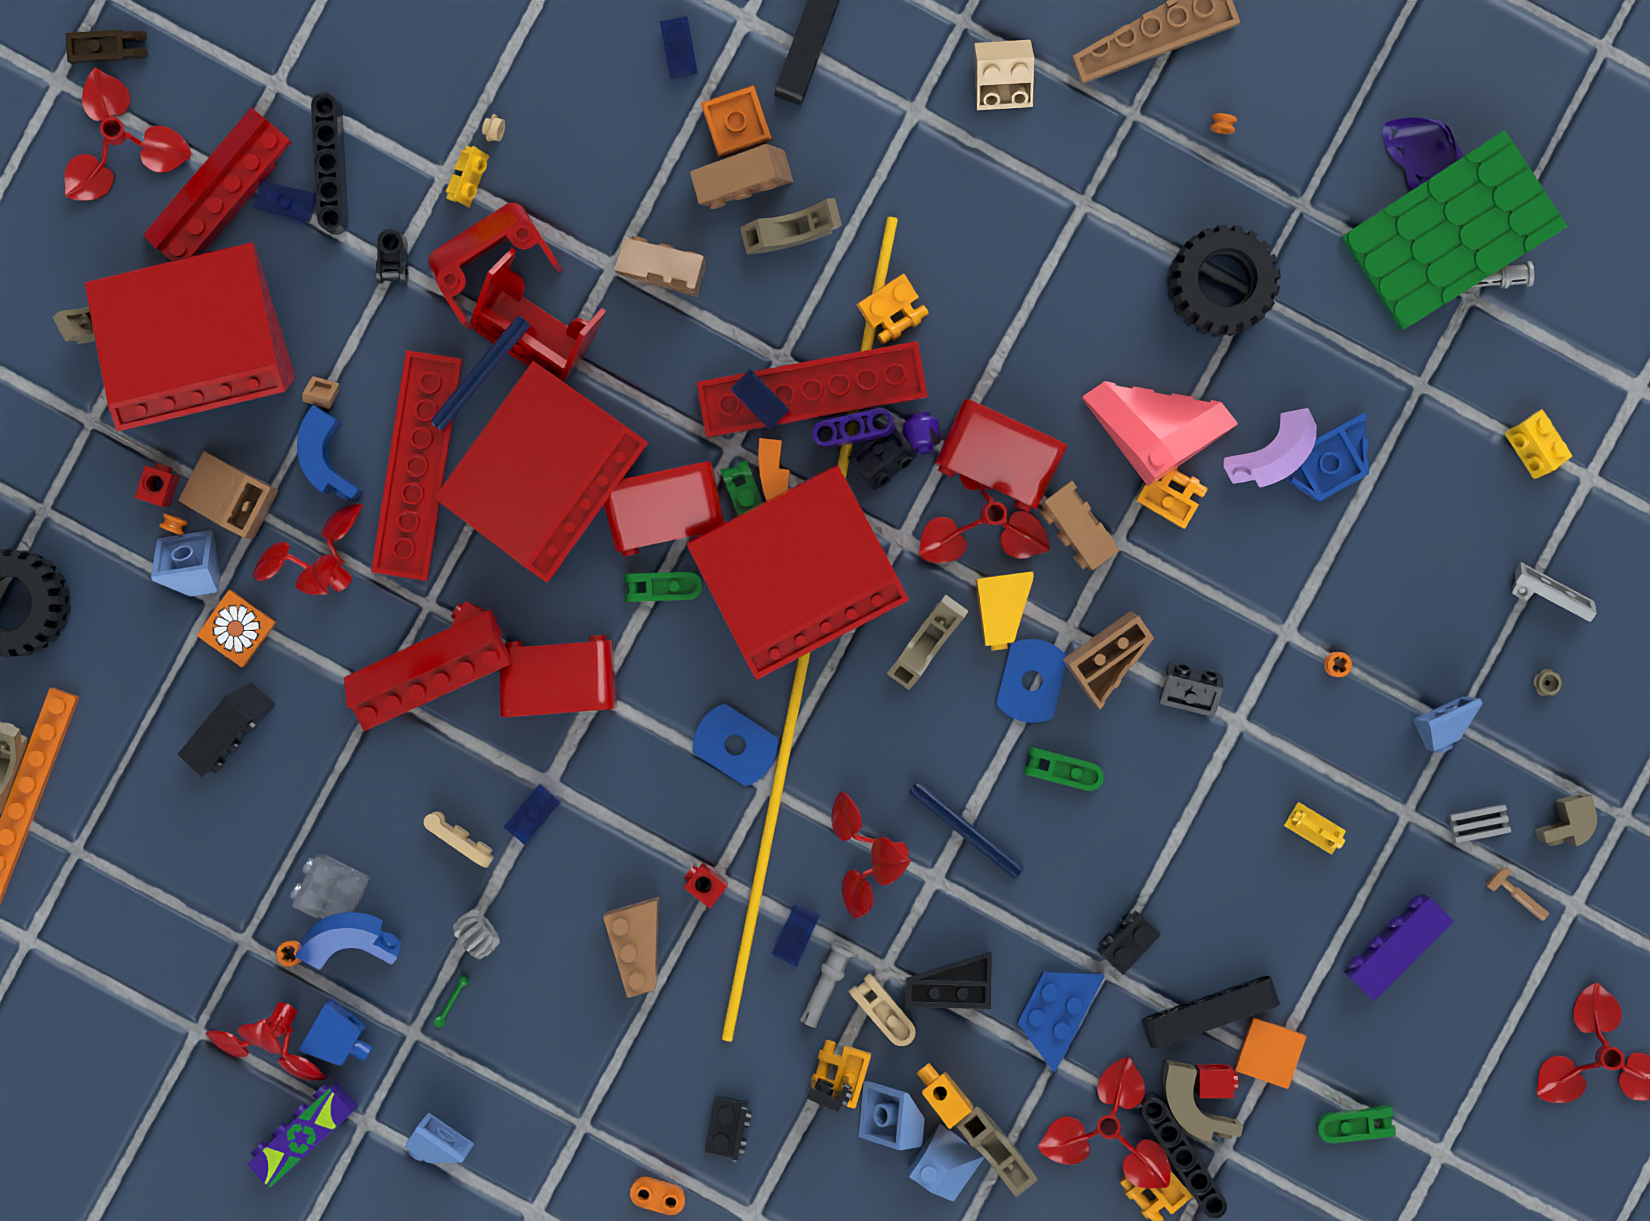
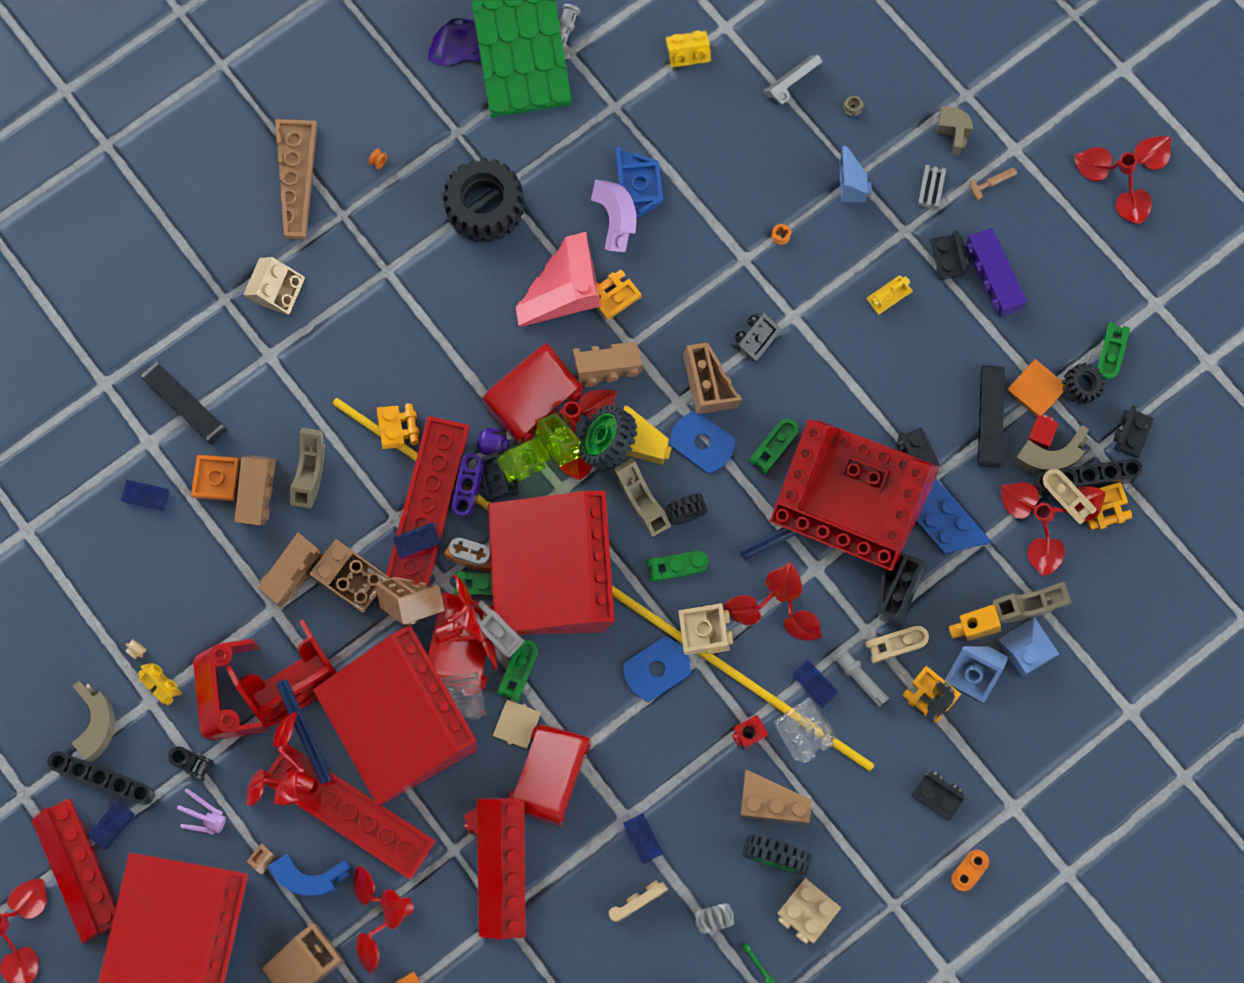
camera: 60 degrees left, 15 degrees down
(337, 316) = (213, 821): none -> lavender plant
(391, 132) = (101, 726): none -> dark tan arch
(394, 390) = (292, 781): none -> red plant
(531, 1033) = (808, 912): none -> tan plate
(573, 978) = (777, 855): none -> black wheel
(601, 611) = (516, 724): none -> tan piece
(602, 540) = (467, 694): none -> clear plate
(663, 496) = (453, 630): none -> red plant
(678, 424) = (408, 601): none -> medium nougat wedge
(685, 338) = (347, 576): none -> medium nougat slope
(689, 545) = (499, 631): none -> light grey hinge
(732, 948) = (805, 731): none -> clear plate
(779, 467) = (471, 547): none -> light grey beam
(802, 783) = (705, 629): none -> tan plate
(867, 717) = (677, 565): none -> green plate
(902, 470) = (513, 462): none -> clear neon green brick
(936, 699) = (686, 509): none -> black tyre
(956, 510) = (558, 439): none -> clear neon green brick
(982, 570) = (607, 437): none -> black wheel
(1040, 891) = (853, 493): none -> red slope
(1146, 1143) = (1067, 494): none -> tan plate
(1263, 1187) = (1133, 432): none -> black bracket
(1304, 1119) = (1093, 379): none -> black tyre
(1396, 881) = (949, 256): none -> black bracket

